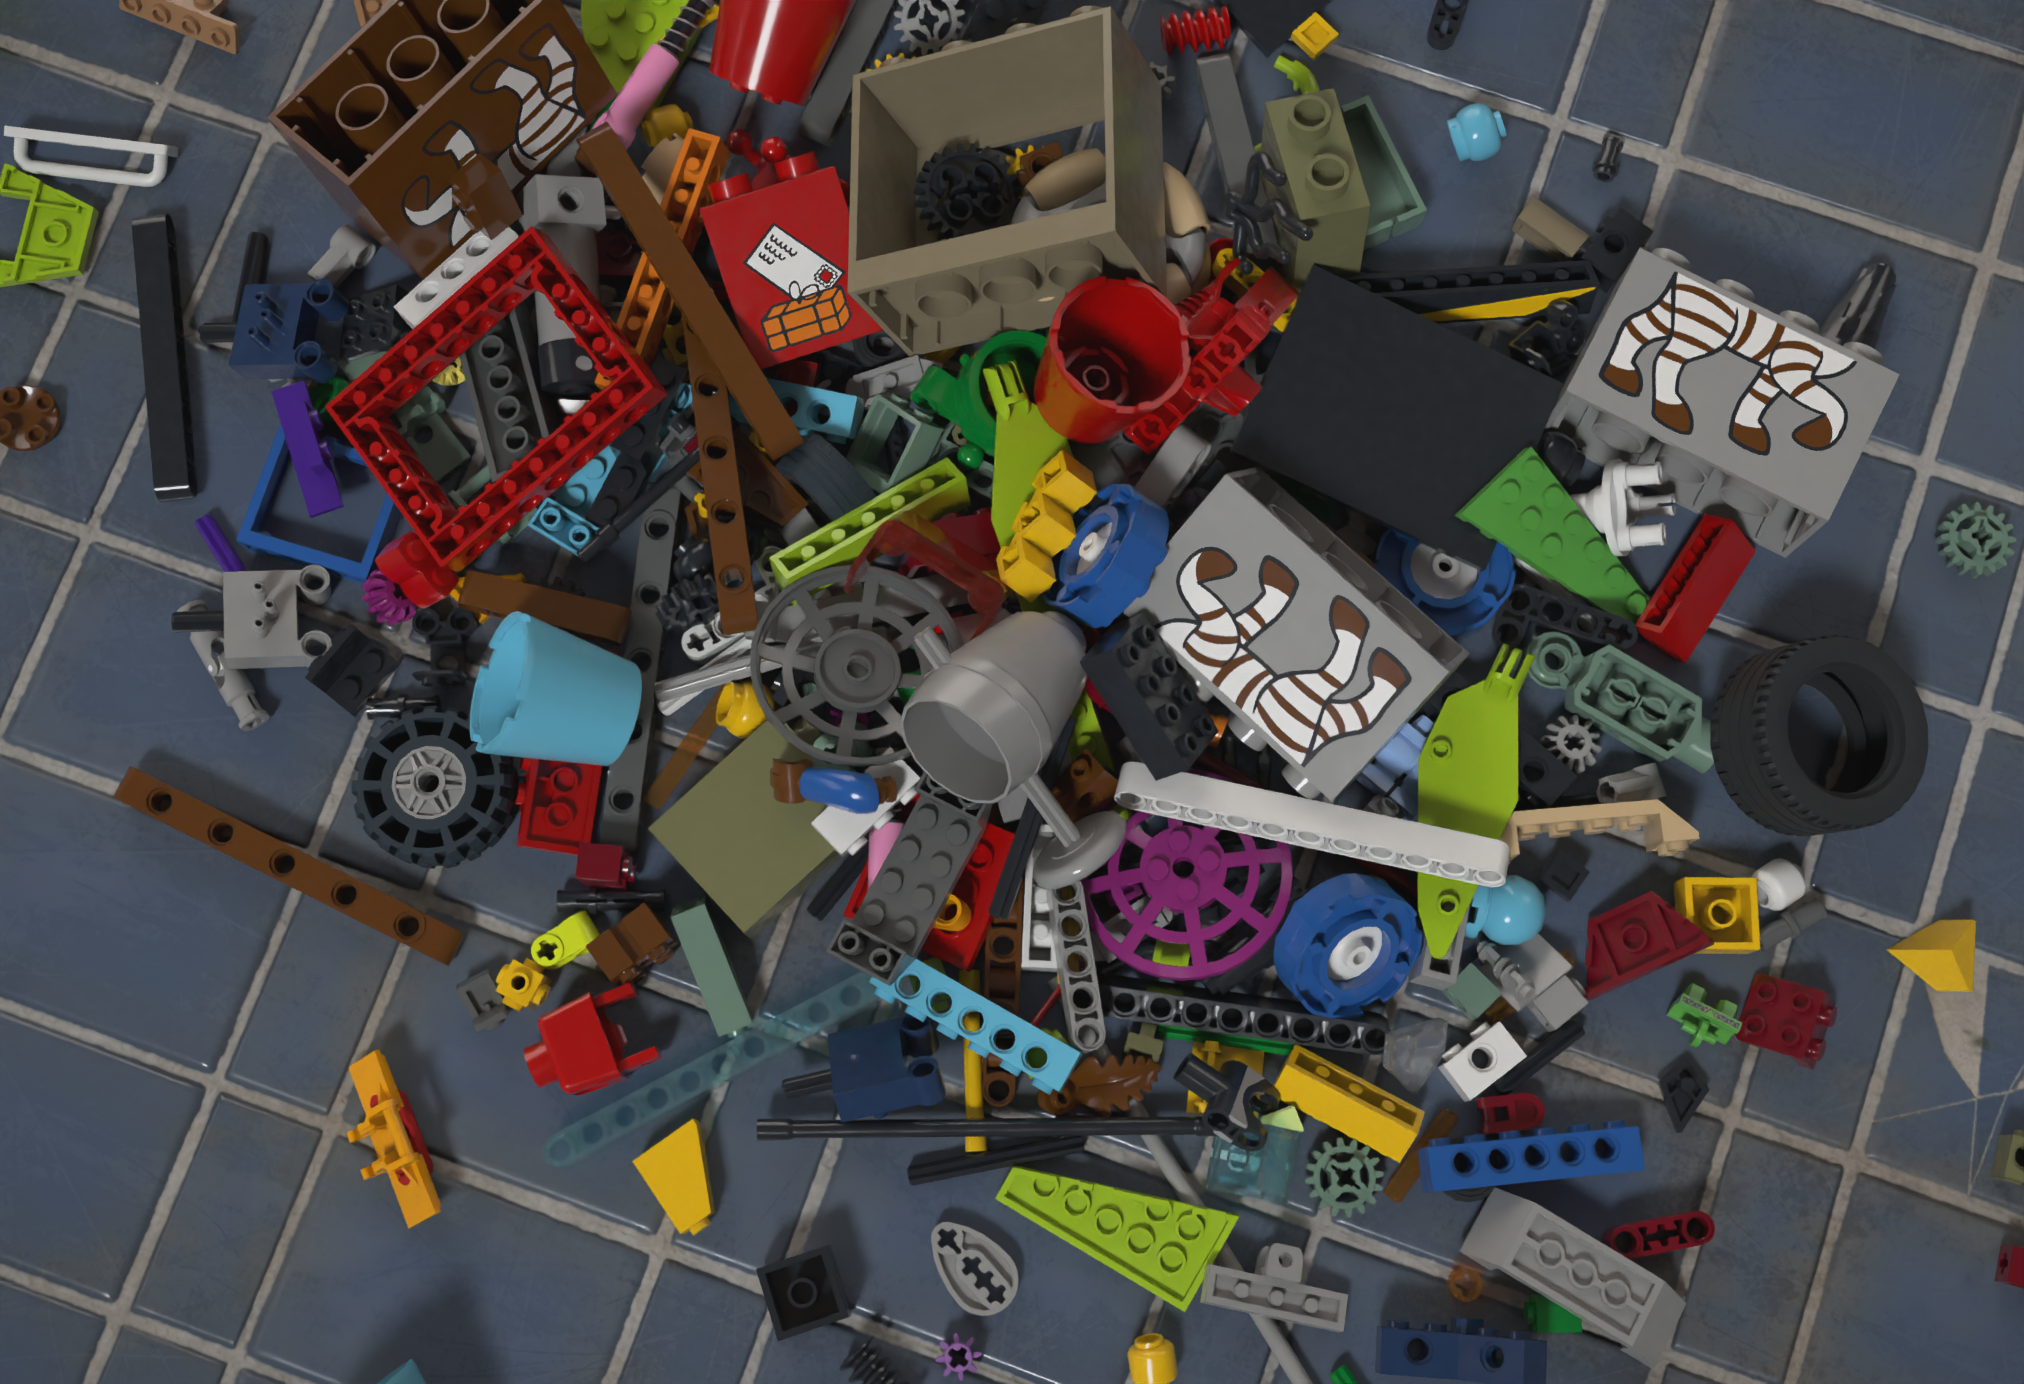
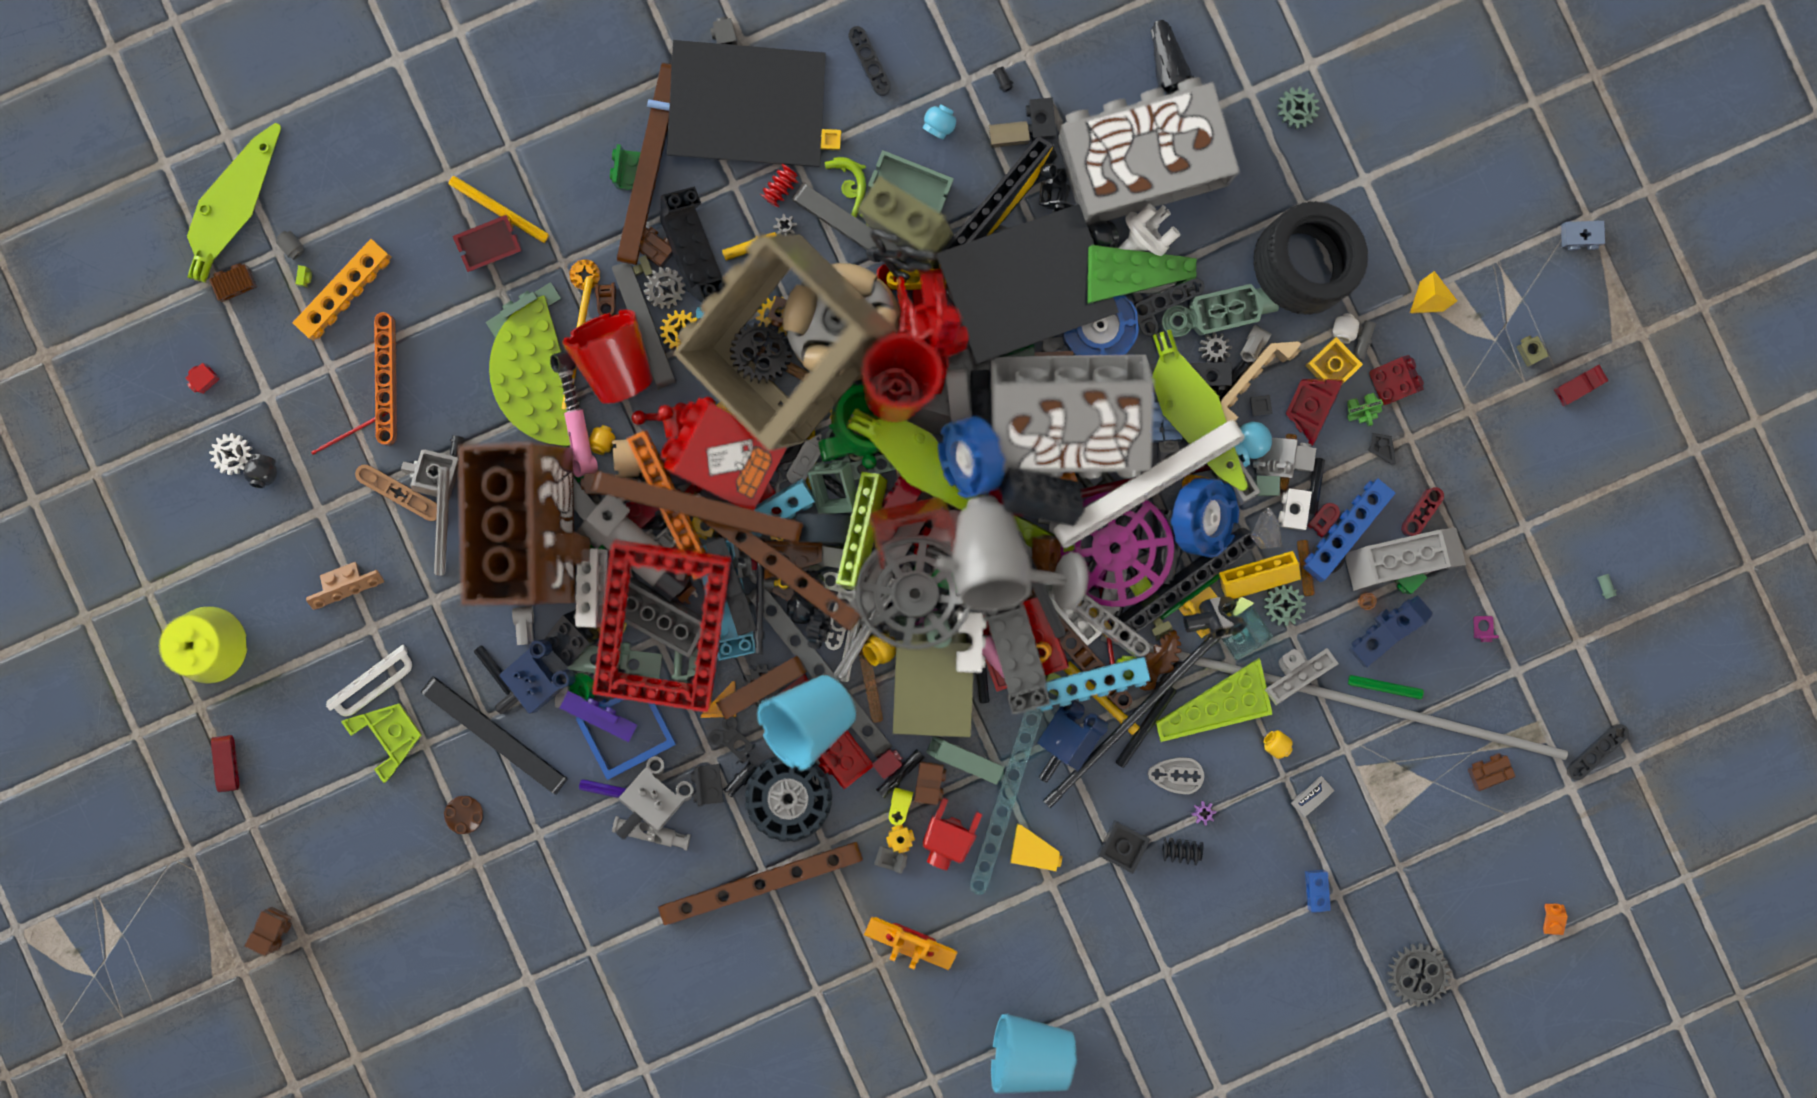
camera: 50 degrees left, 10 degrees up
(387, 599) = (692, 740): magenta gear -> none
(416, 570) = (694, 722): red brick -> none
(829, 786) = (953, 650): blue piece -> none
(1045, 525) = (934, 466): yellow brick -> none
(1695, 587) = (1205, 235): red brick -> none

